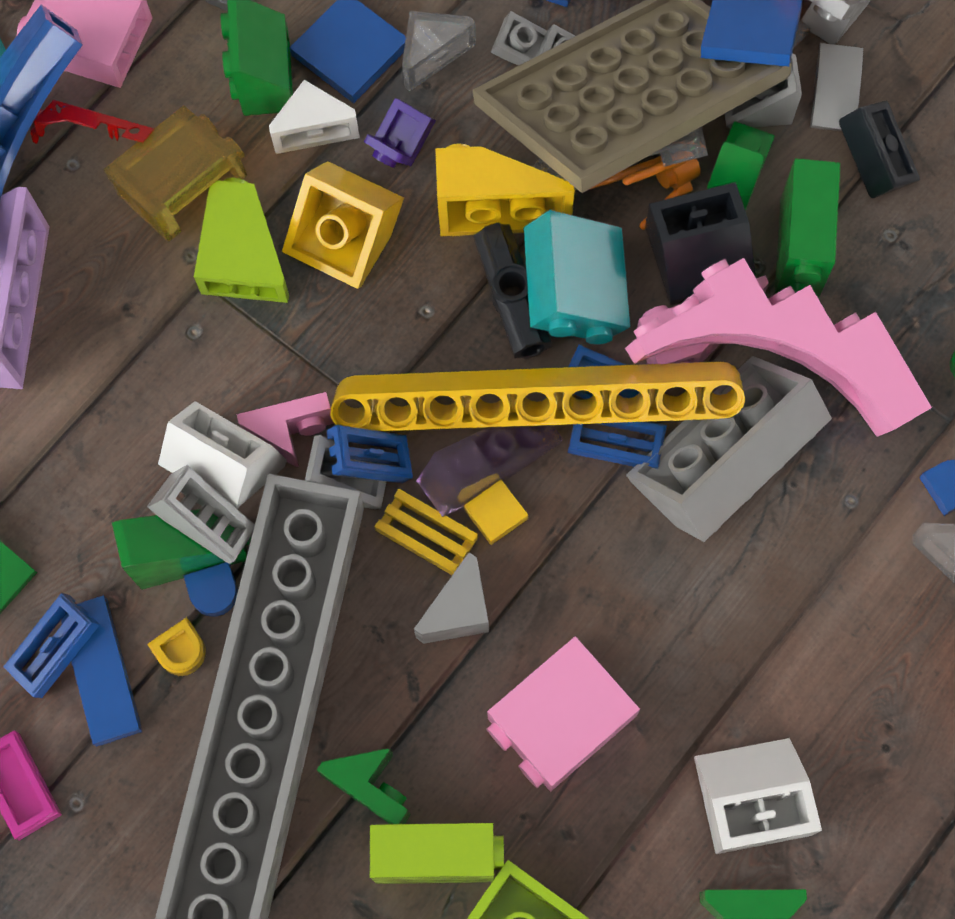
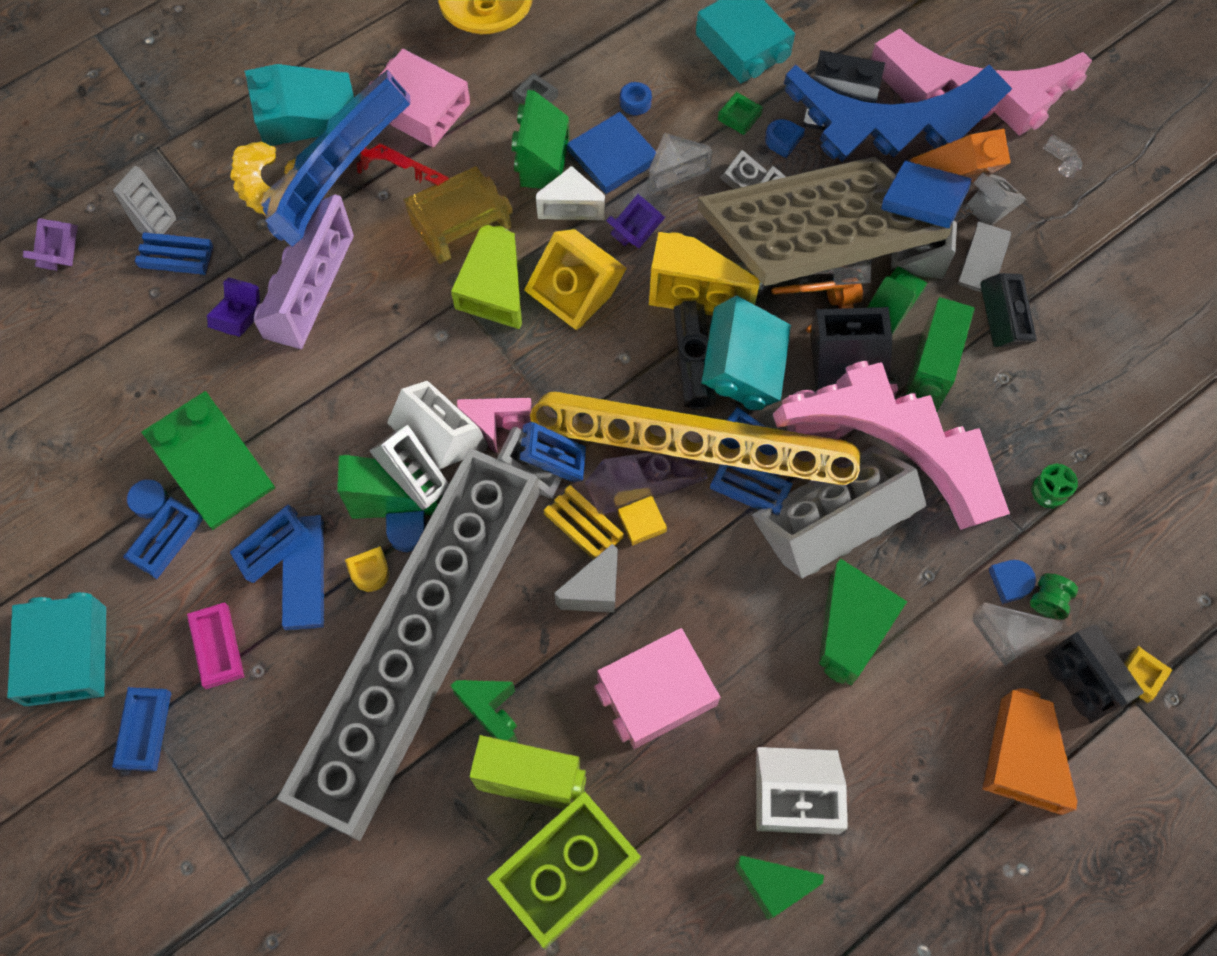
camera: 10 degrees right, 5 degrees down
(777, 580) = (854, 622): none -> green slope

